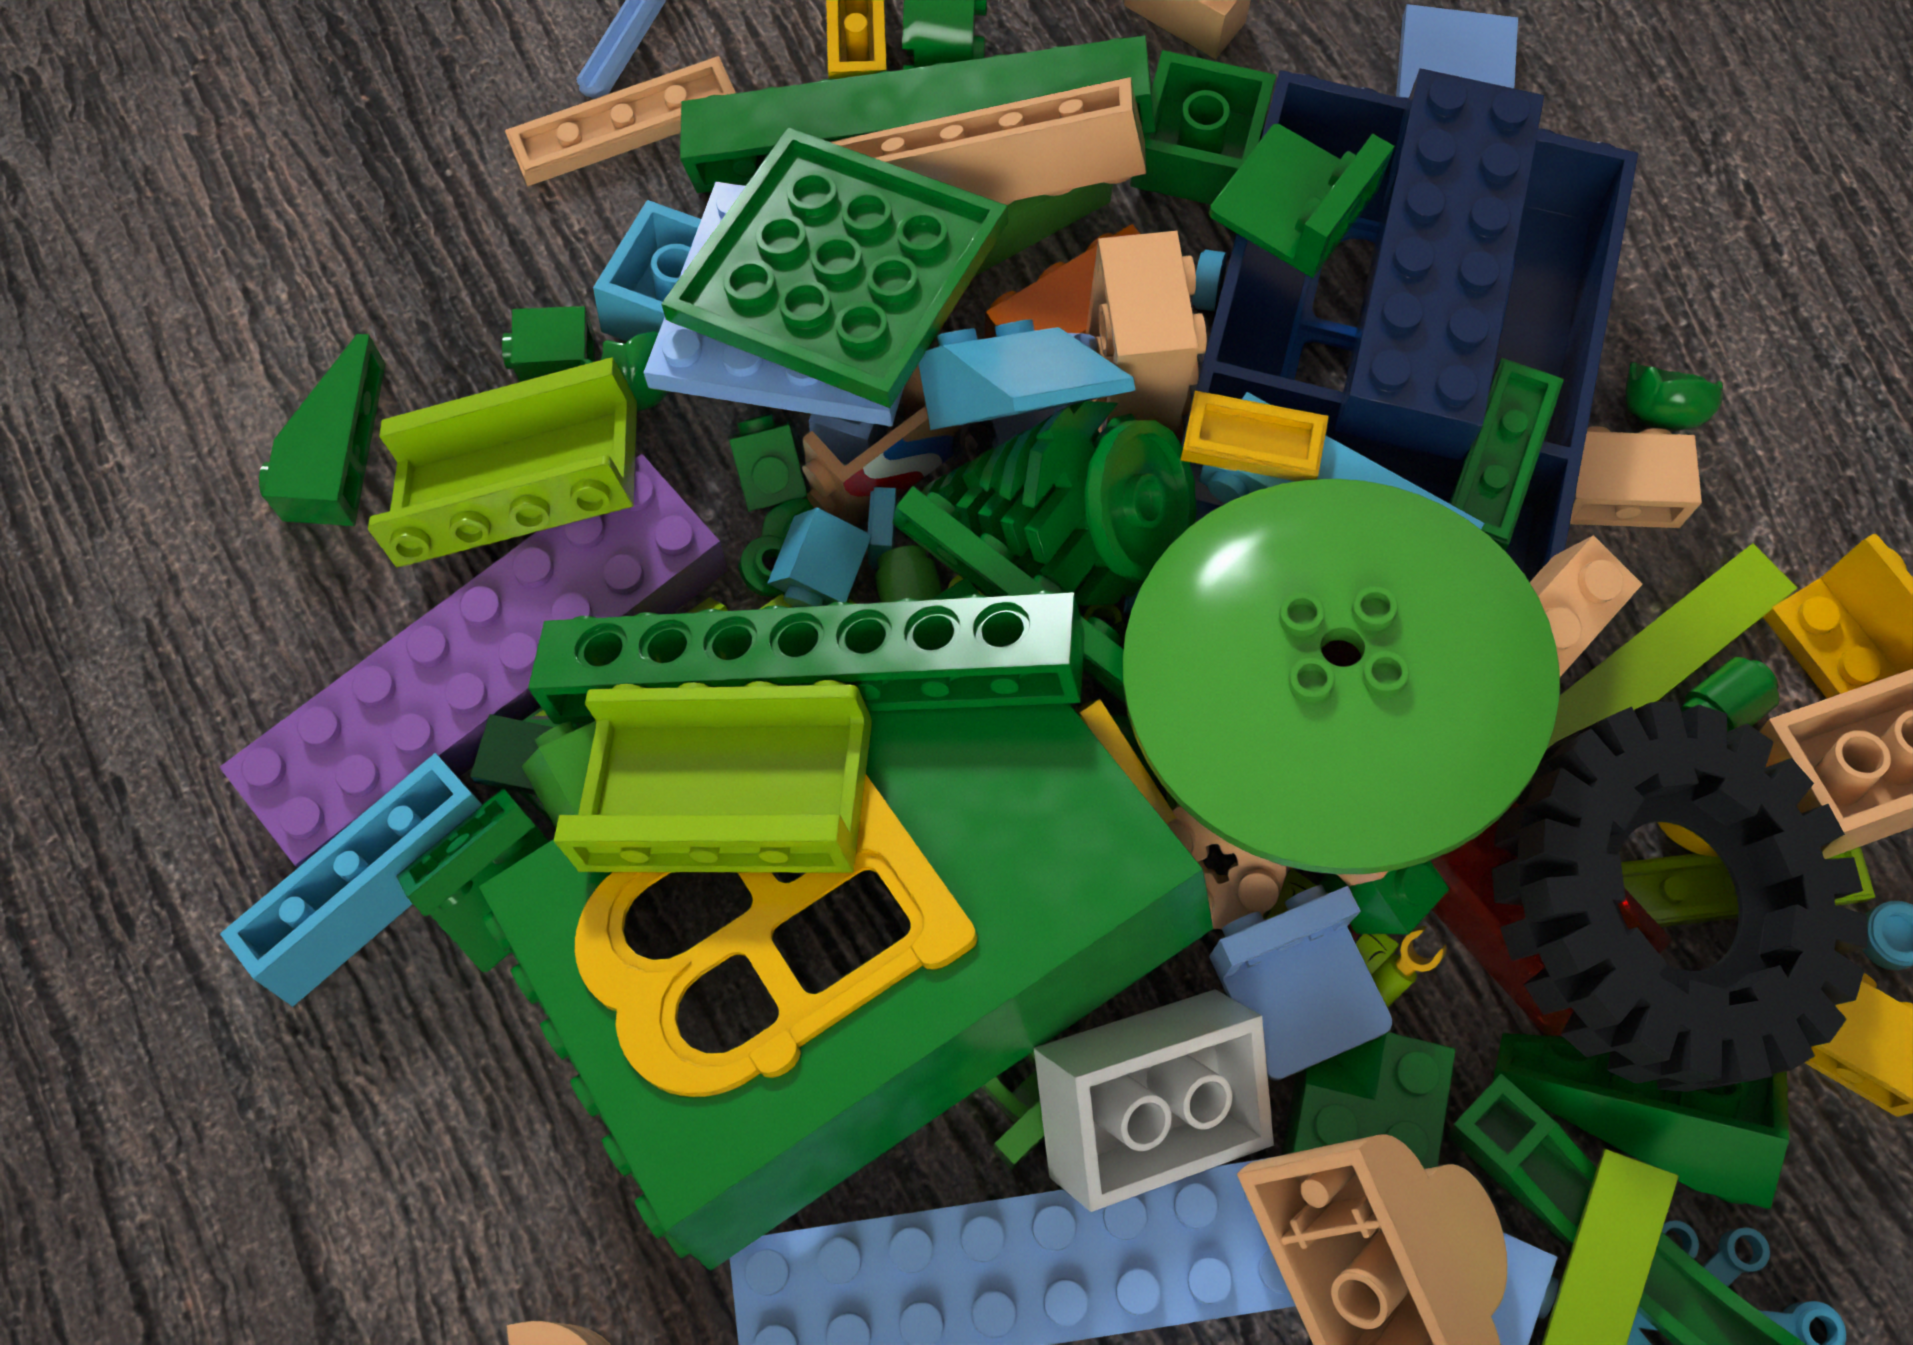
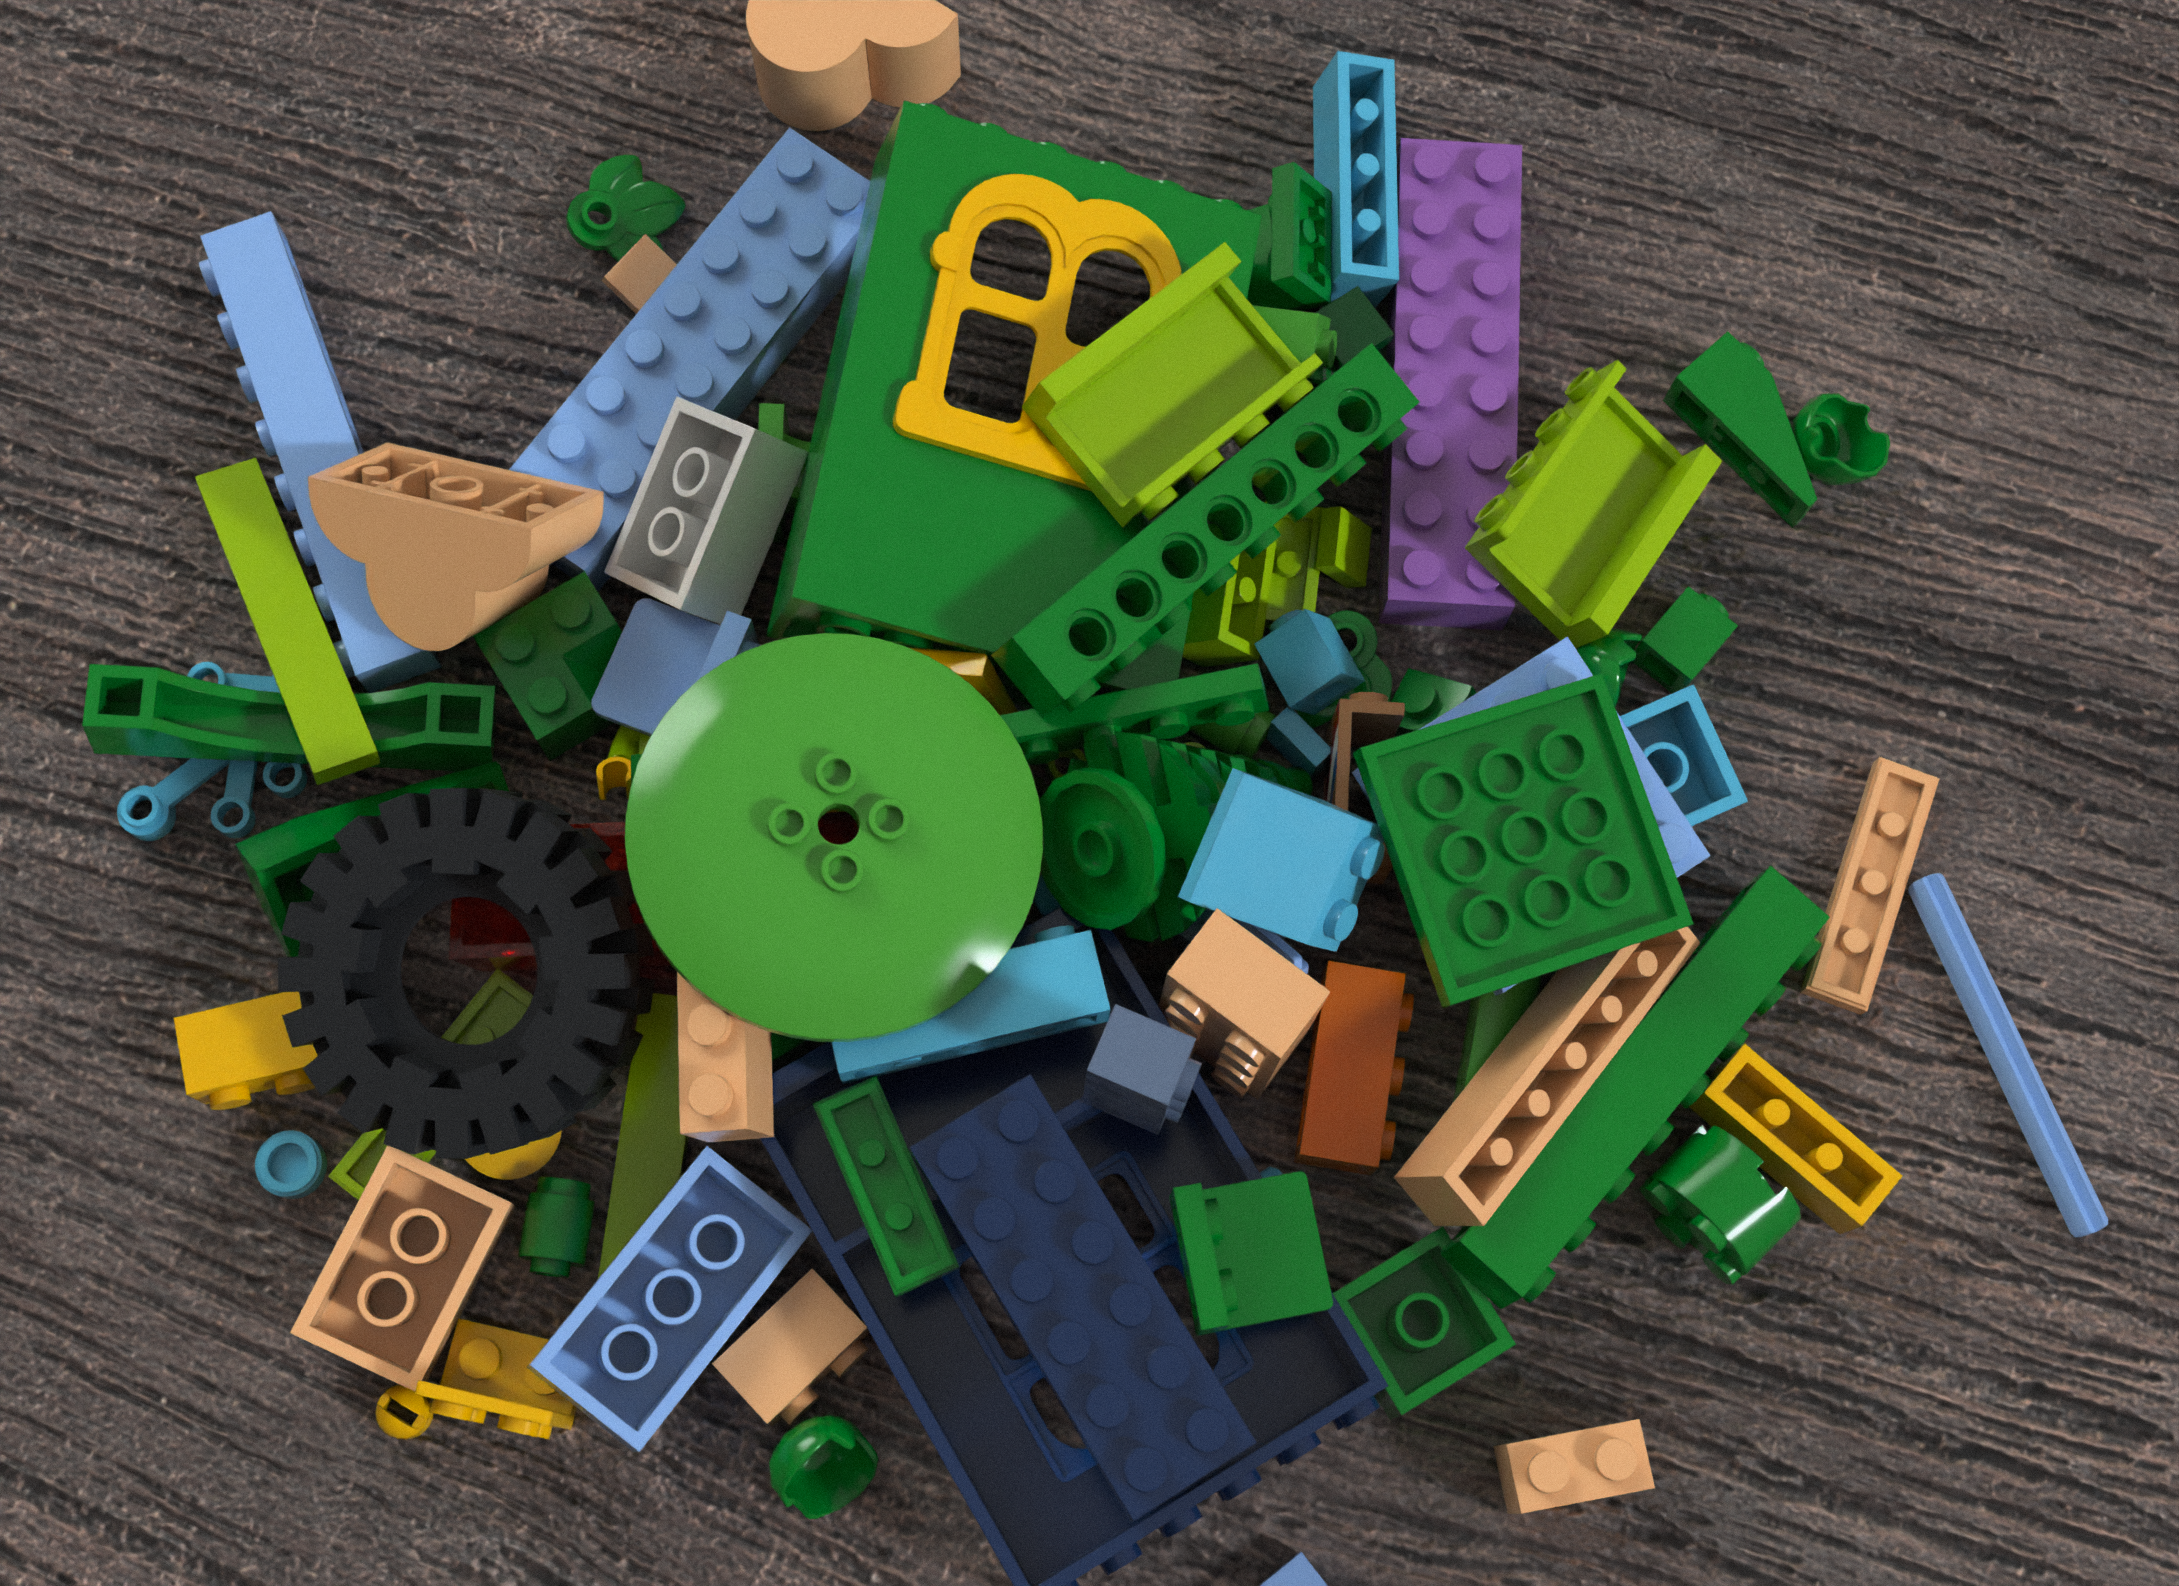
camera: 130 degrees right, 5 degrees up
(287, 365) = (1839, 441): none -> green hair
(1254, 437) = (1066, 970): yellow tile -> none
(1280, 312) = (1141, 1071): none -> sand blue brick
(1721, 560) = (670, 1300): none -> light blue brick

